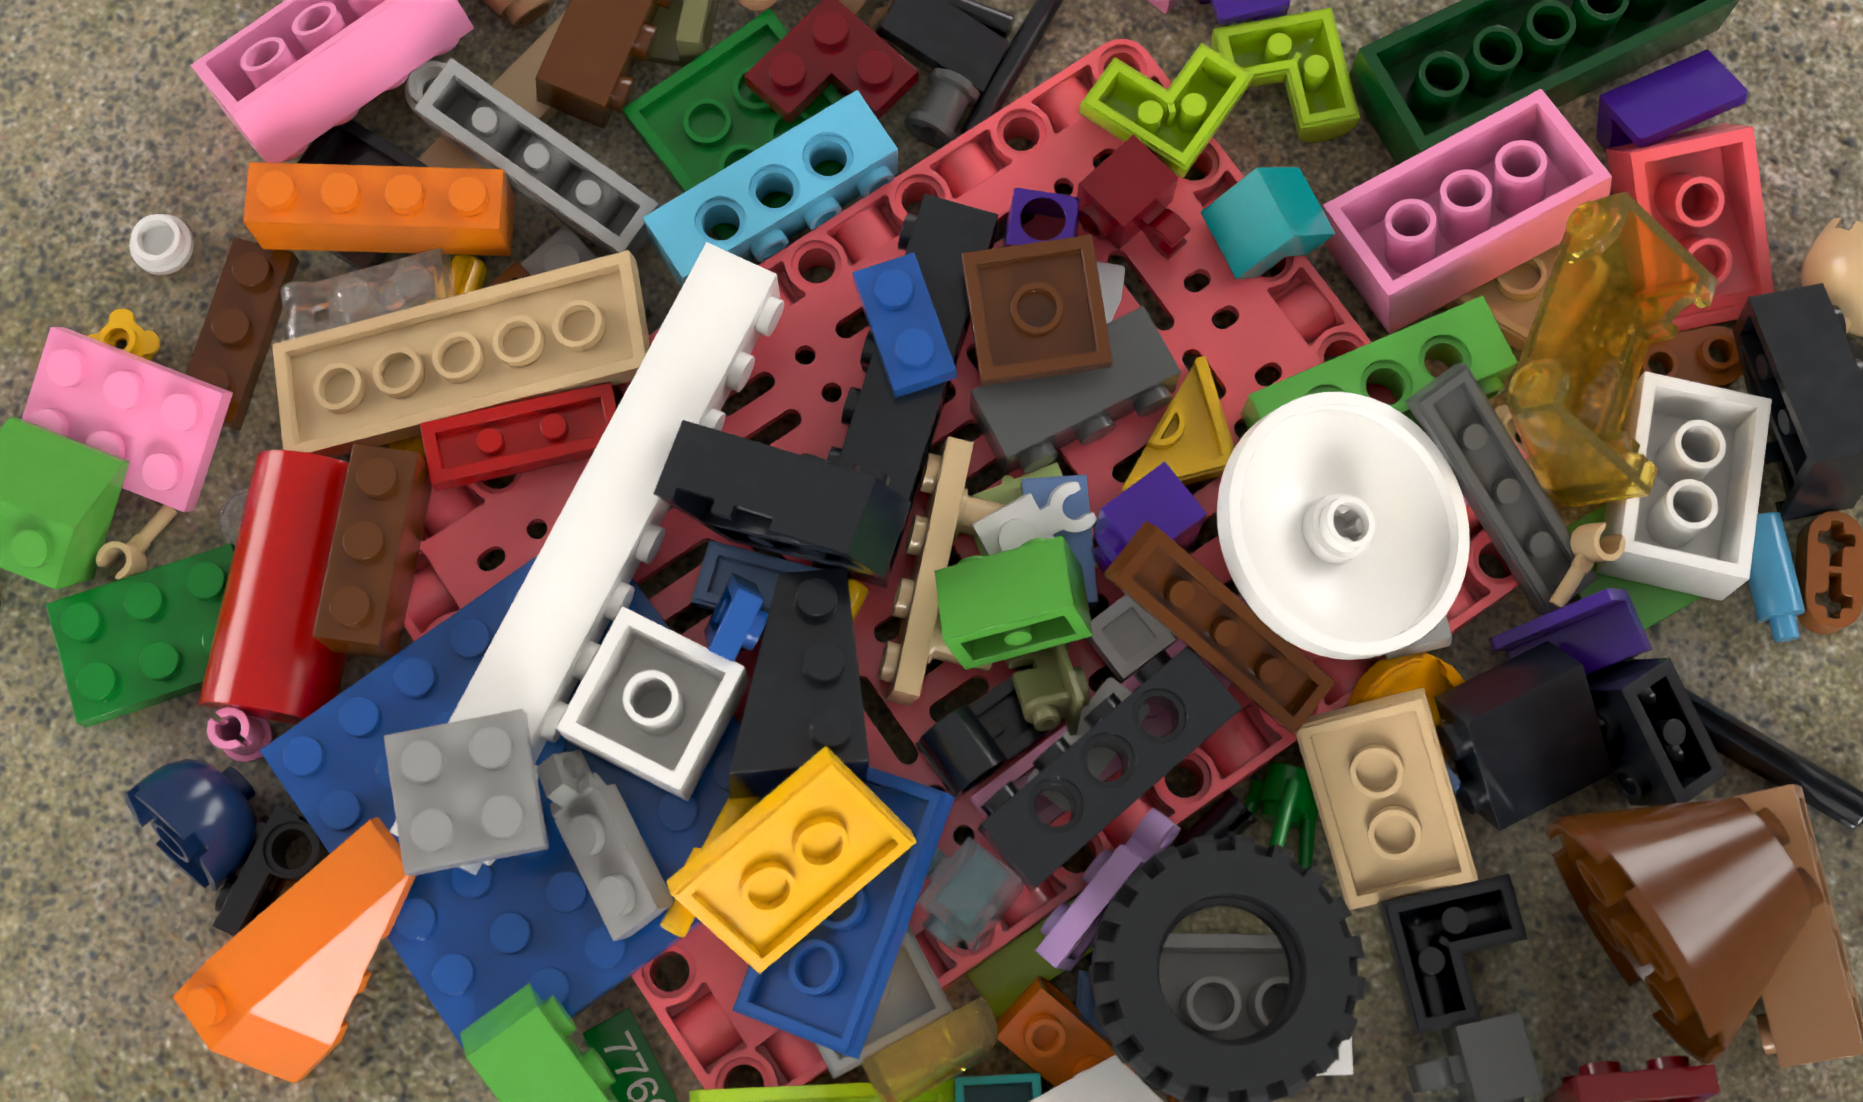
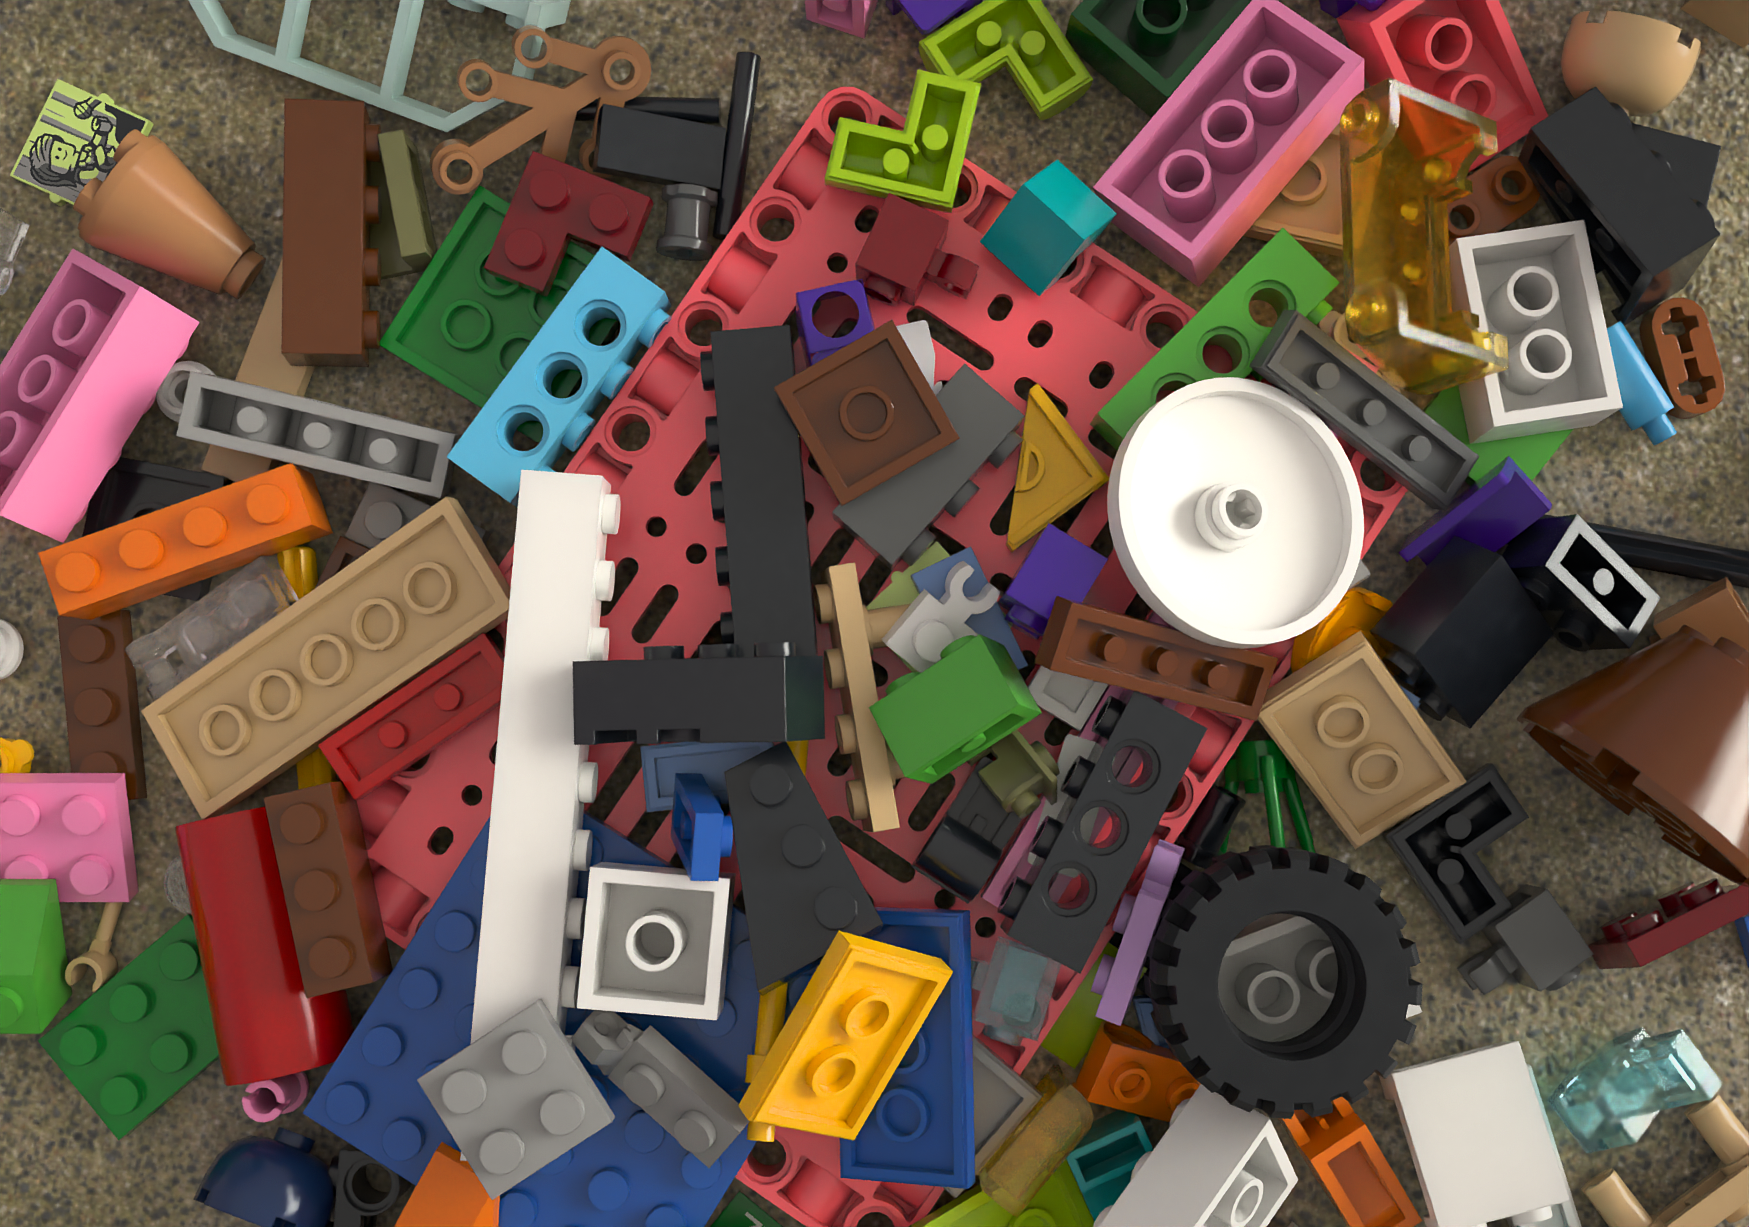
camera: 20 degrees left, 10 degrees up
(904, 325) = (744, 473): blue plate -> none
(1587, 551) = (1465, 431): tan hand -> none

